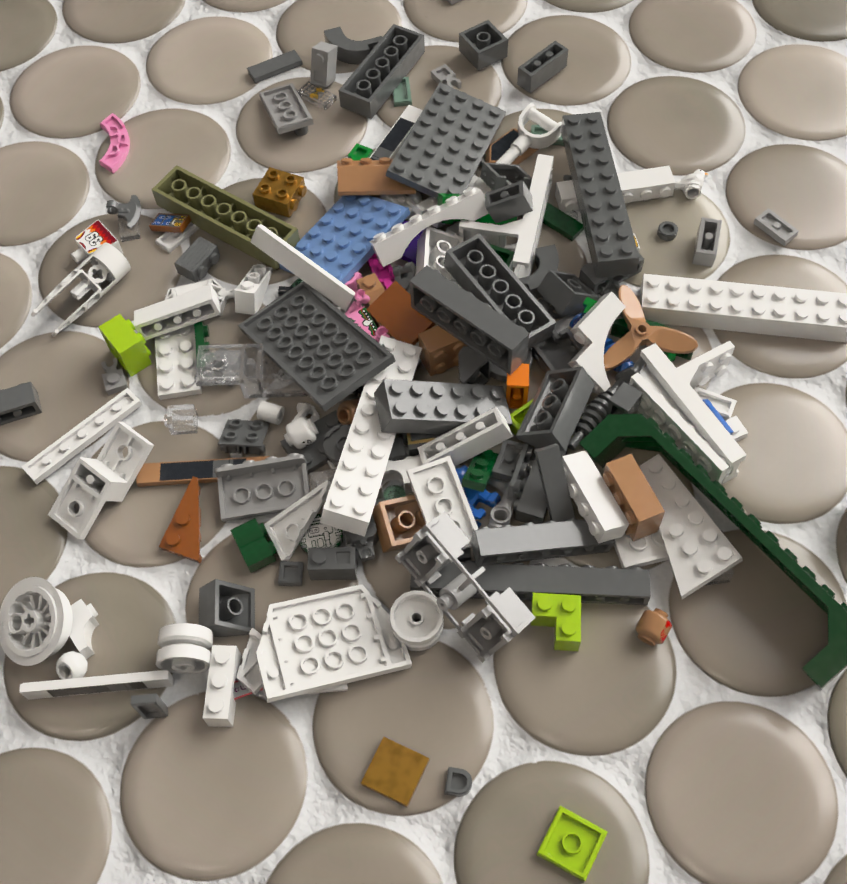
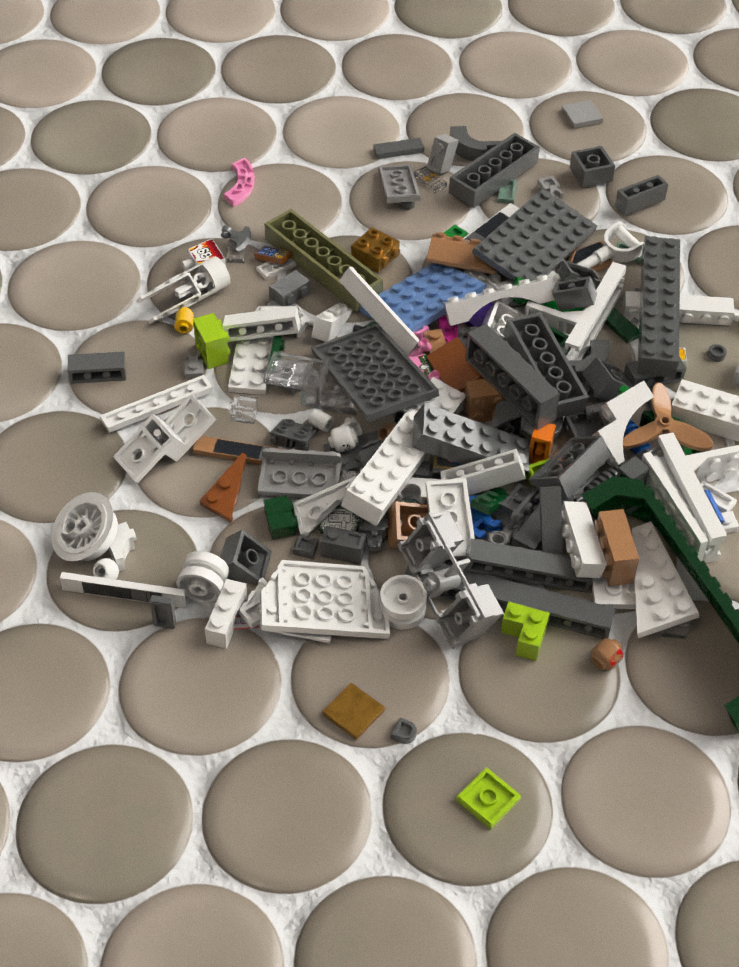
camera: 10 degrees right, 10 degrees down
(89, 323) = (184, 320): none -> yellow brick

